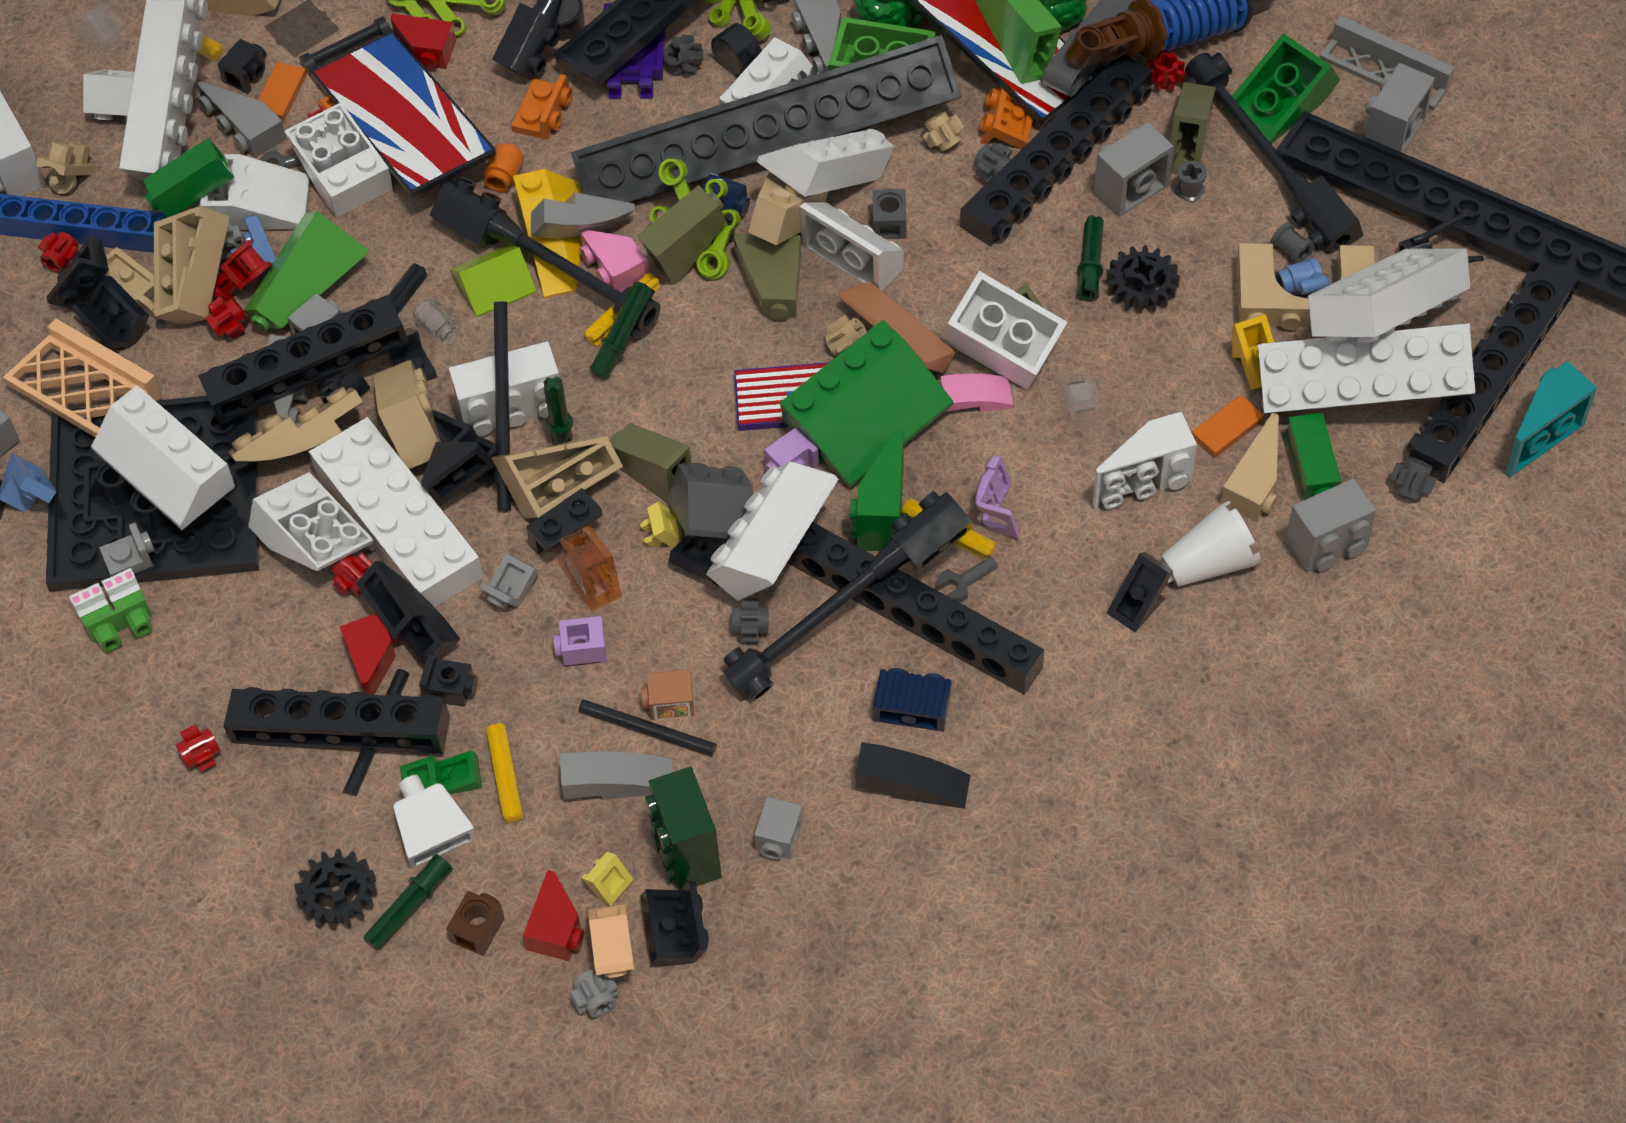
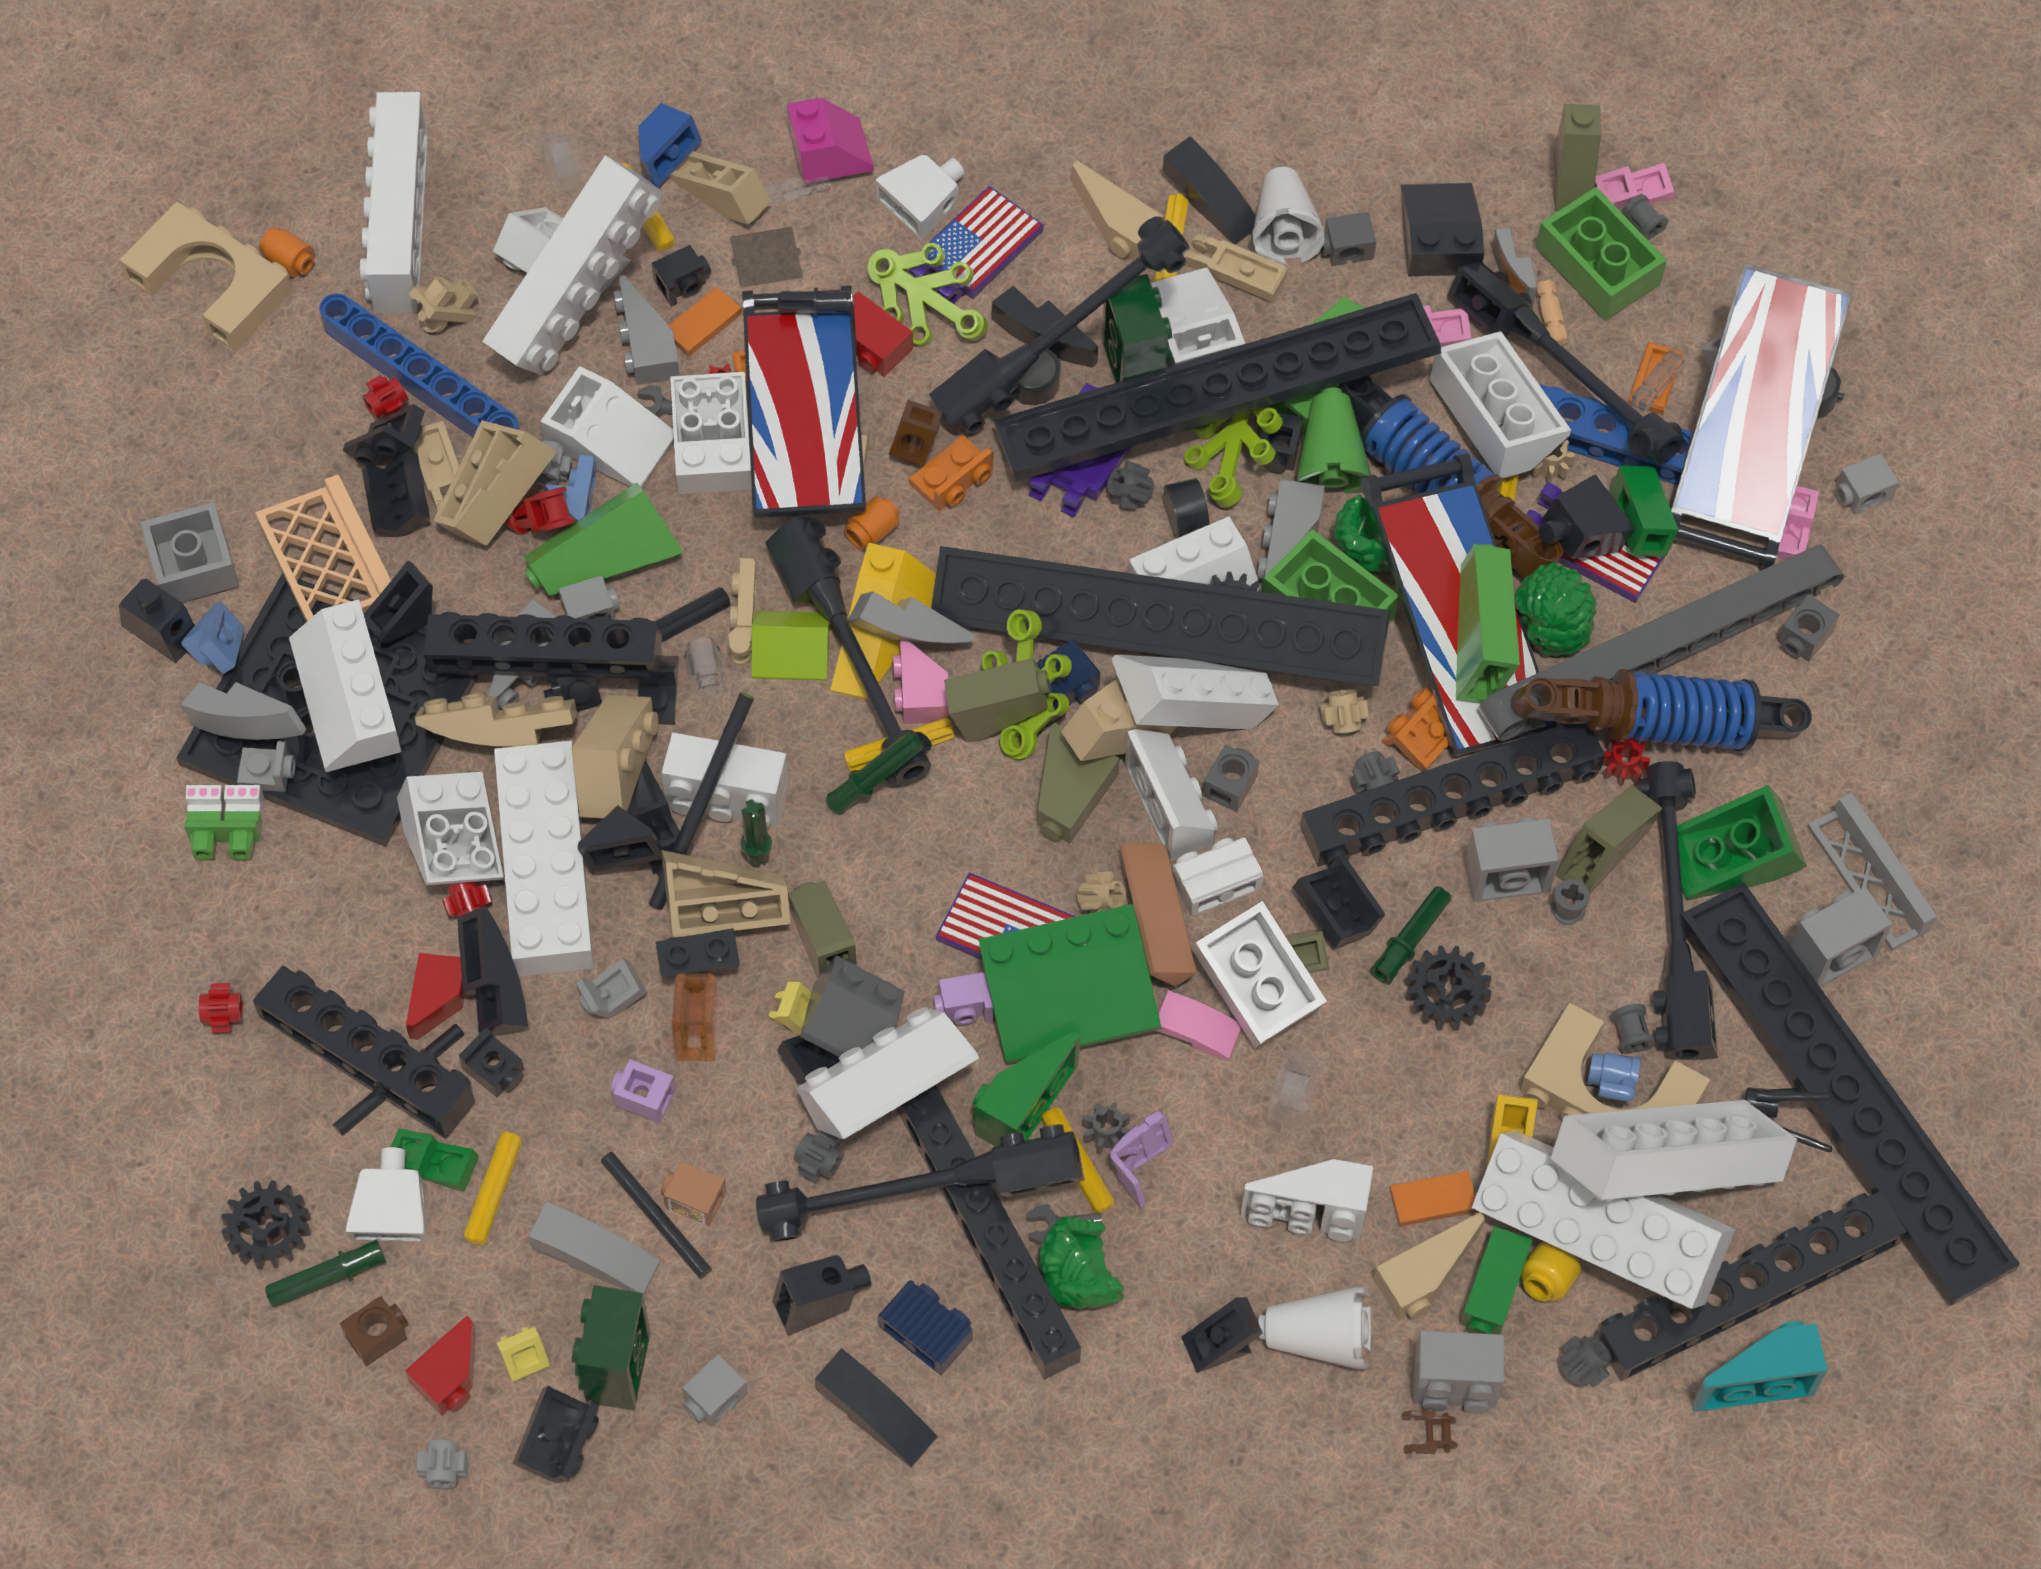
camera: 25 degrees right, 5 degrees up
(85, 519) = (241, 713): none -> light grey slope
(170, 379) = (401, 605): none -> black slope
(187, 178) = (542, 387): green brick -> none
(226, 317) = (503, 555): red gear -> none
(363, 36) = (815, 302): none -> black axle
(443, 273) = (742, 615): none -> tan hinge
(496, 78) = (917, 421): none -> reddish brown brick
(611, 940) = (483, 1421): light nougat slope -> none
(821, 708) = (817, 1292): none -> black torso
(924, 282) = (1217, 875): none -> white brick
(960, 489) = (1100, 1118): none -> dark grey gear
(1000, 597) = (1076, 1265): none -> green hair
(1026, 258) = (1340, 902): none -> black bracket
(1327, 575) = (1430, 1419): none -> reddish brown piece
(1348, 430) = (1550, 1273): none -> yellow head

